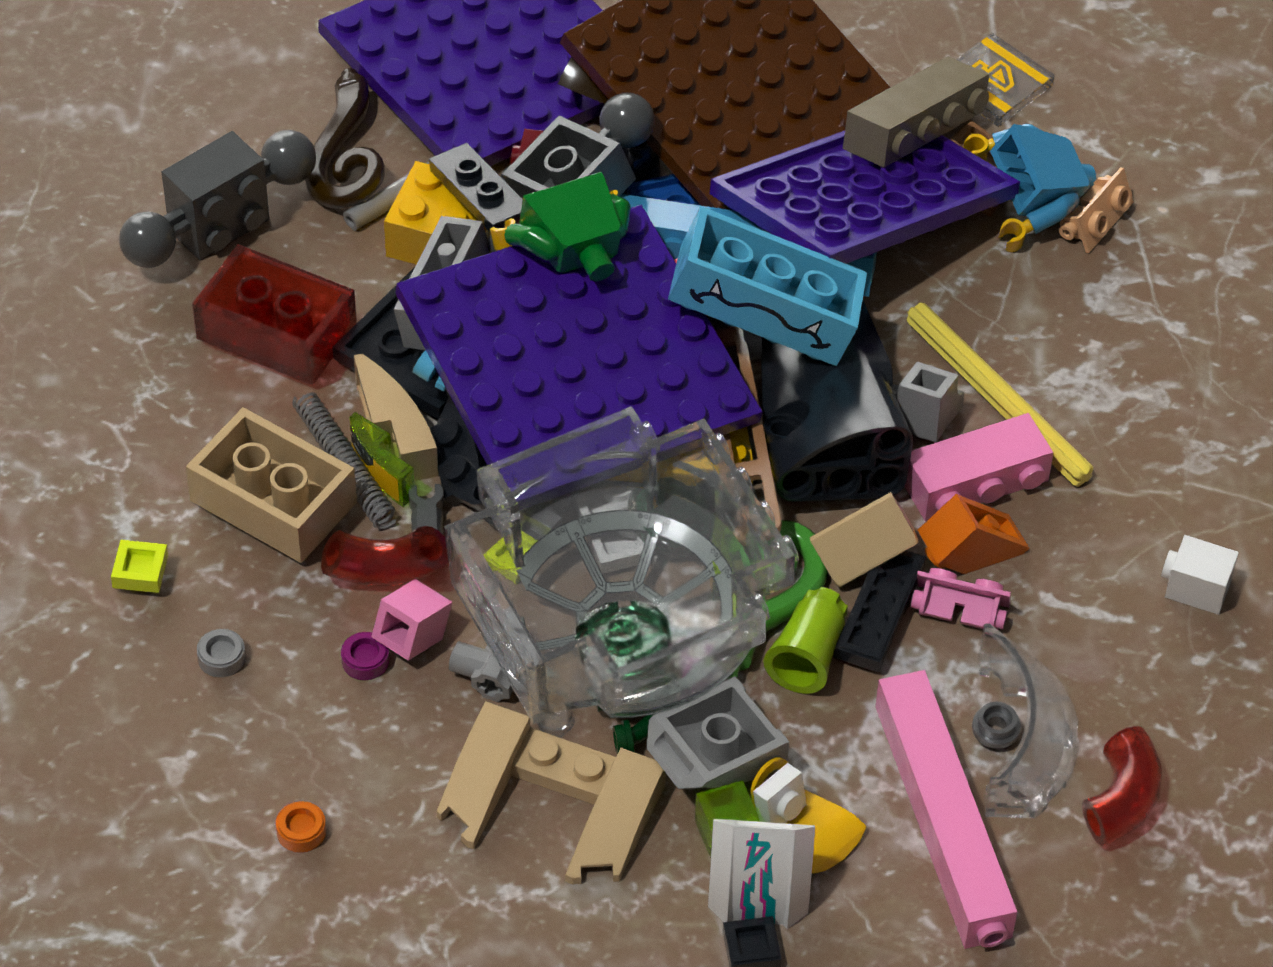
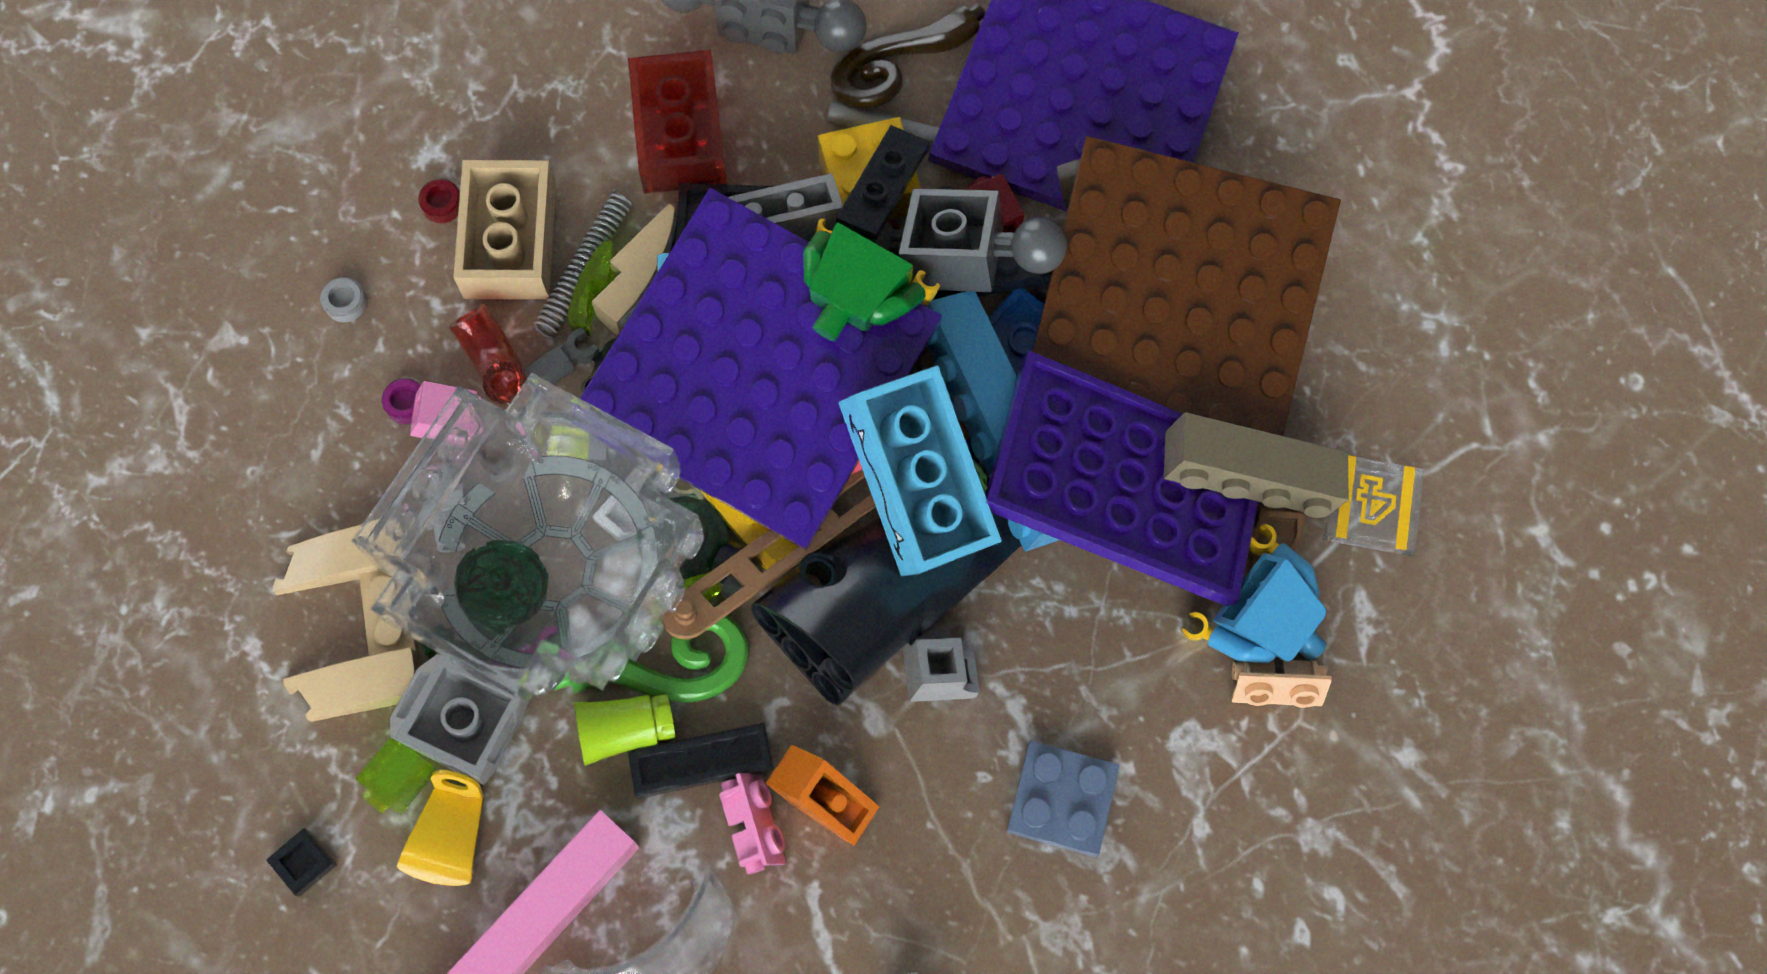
camera: 55 degrees right, 20 degrees up
(139, 566) = (381, 191): neon yellow plate -> none
(185, 532) = (439, 200): none -> dark red tile
(301, 826) = (217, 459): orange tile -> none
(761, 870) = (350, 832): white slope -> none
(780, 796) = (439, 802): white plate -> none
(864, 539) = (746, 711): tan slope -> none
(979, 465) = (901, 753): bright pink brick -> none
(995, 389) = (1005, 723): light yellow axle -> none
(998, 715) = (625, 922): flat silver plate -> none
(1091, 394) = (1063, 799): none -> sand blue plate

